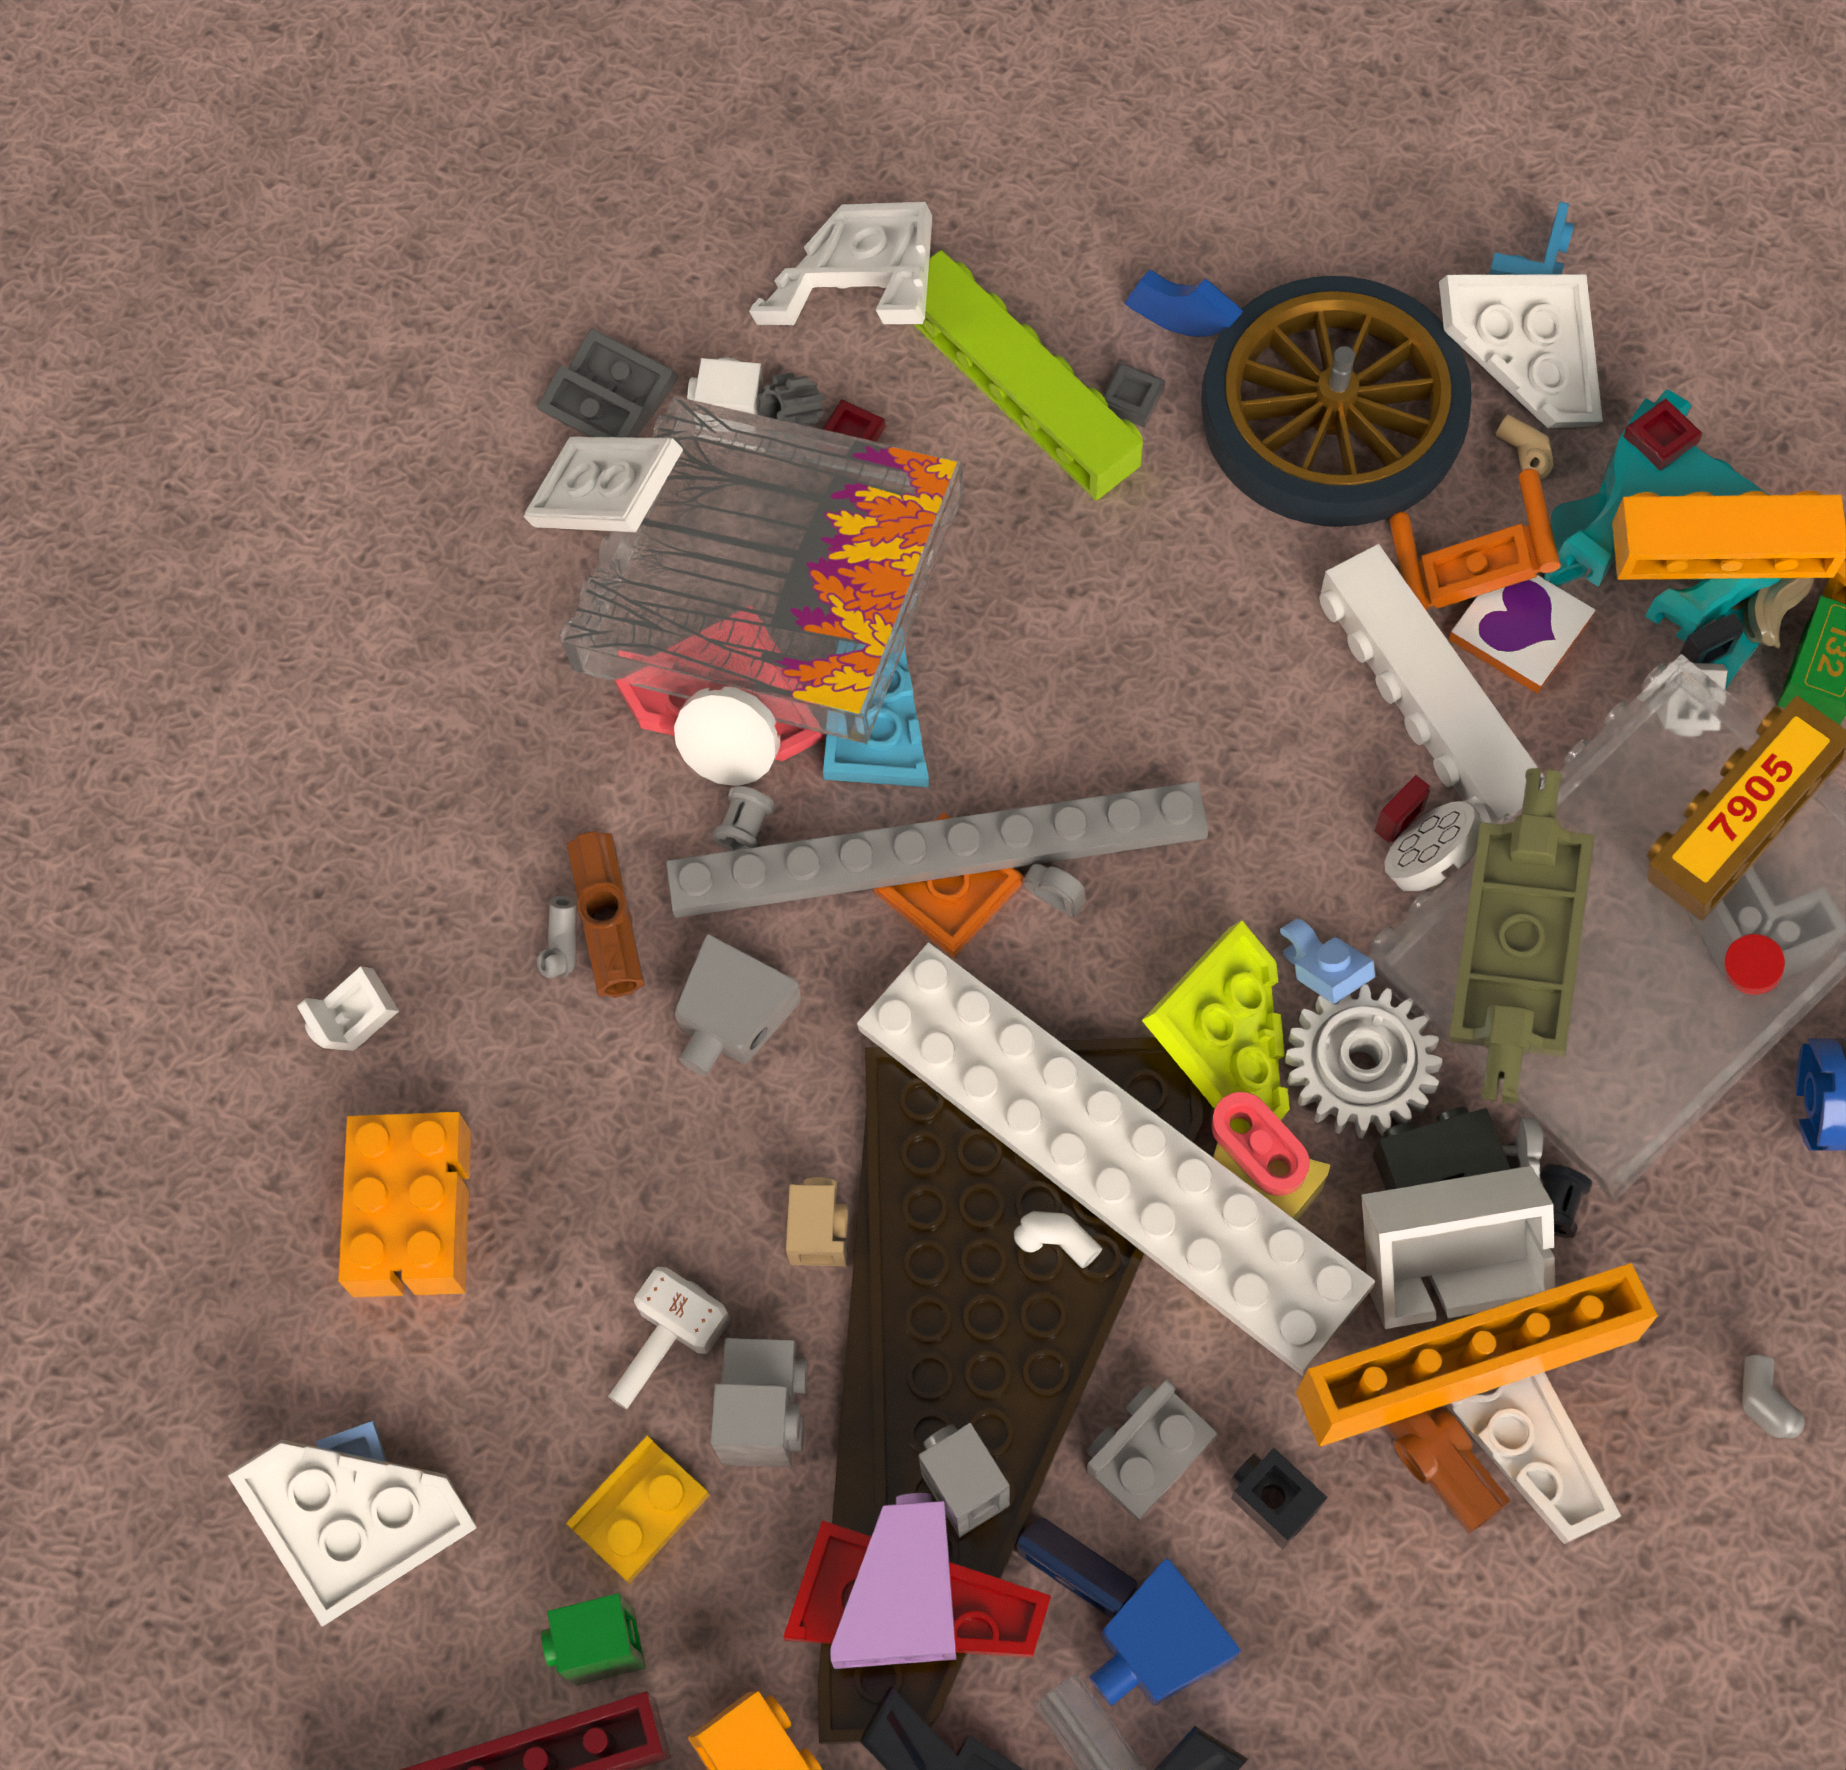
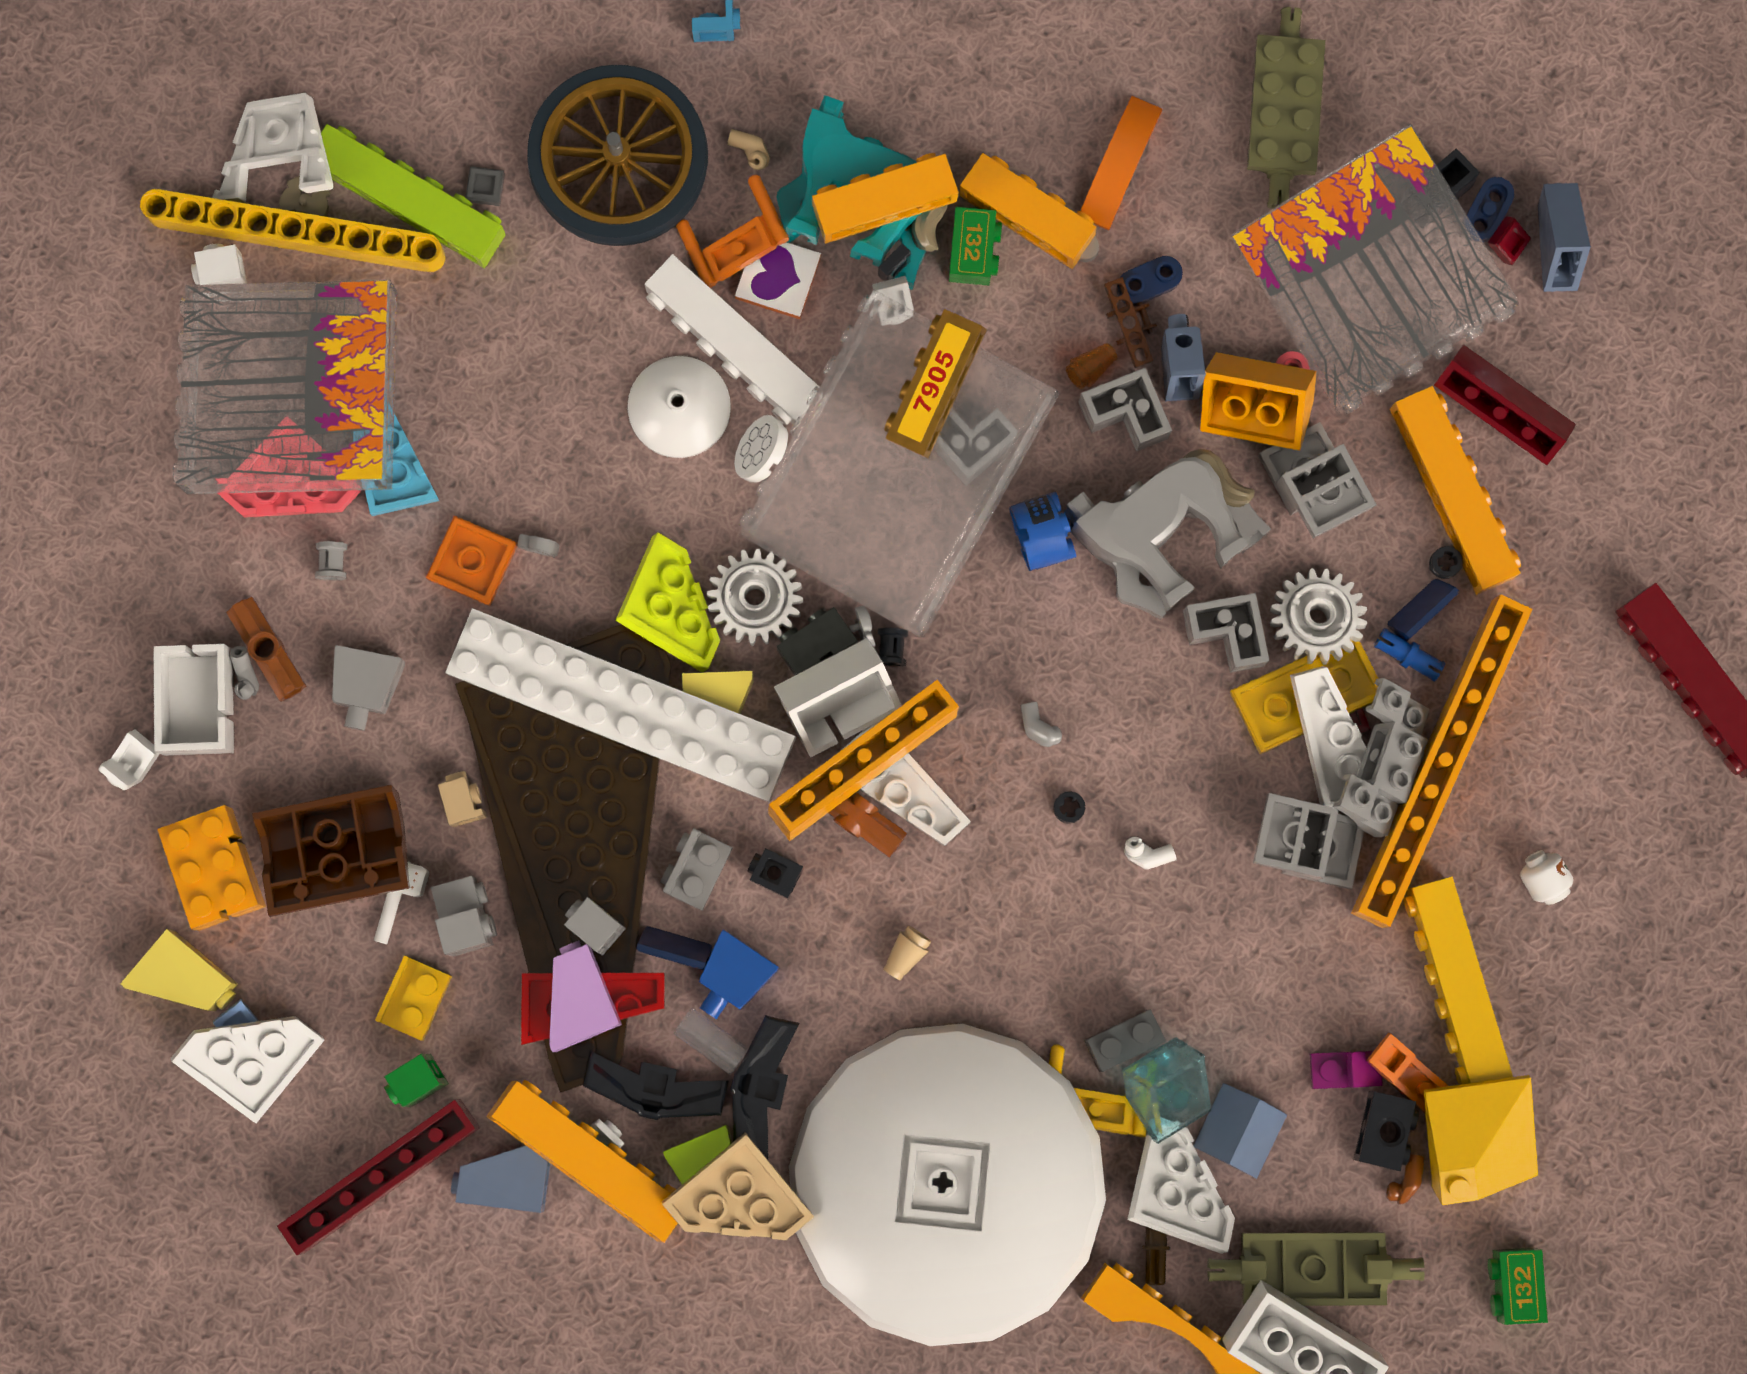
camera: 25 degrees left, 15 degrees up
(297, 1351) = (181, 974): none -> light yellow slope
(472, 950) = (193, 700): none -> white piece
(596, 1231) = (333, 850): none -> reddish brown piece
(603, 483) = (161, 362): white tile -> none
(607, 389) = (138, 288): dark grey slope -> none
(727, 736) = (302, 511): white tile -> none
(791, 400) = (264, 264): dark grey gear -> none
(855, 422) = (309, 266): dark red tile -> none
(861, 343) = (294, 200): none -> dark tan piece
(873, 375) = (280, 220): none -> yellow beam
(936, 849) = (457, 544): light grey plate -> none
(1056, 1229) = (604, 760): white arm -> none
(1182, 308) = (497, 116): blue tile -> none
(1262, 1144) = (707, 674): coral plate -> none
(1315, 787) = (682, 429): none -> white dish
(1326, 968) = (718, 546): light blue plate -> none
(1402, 809) = (736, 427): dark red tile -> none
(1458, 1700) = (907, 952): none -> tan cone
(1522, 937) = (825, 500): olive plate -> none
(1531, 339) = (731, 76): white plate -> none
(1662, 434) = (828, 134): dark red tile -> none
(1754, 964) = (963, 479): red tile -> none
(1801, 1562) = (1059, 802): none -> black bush

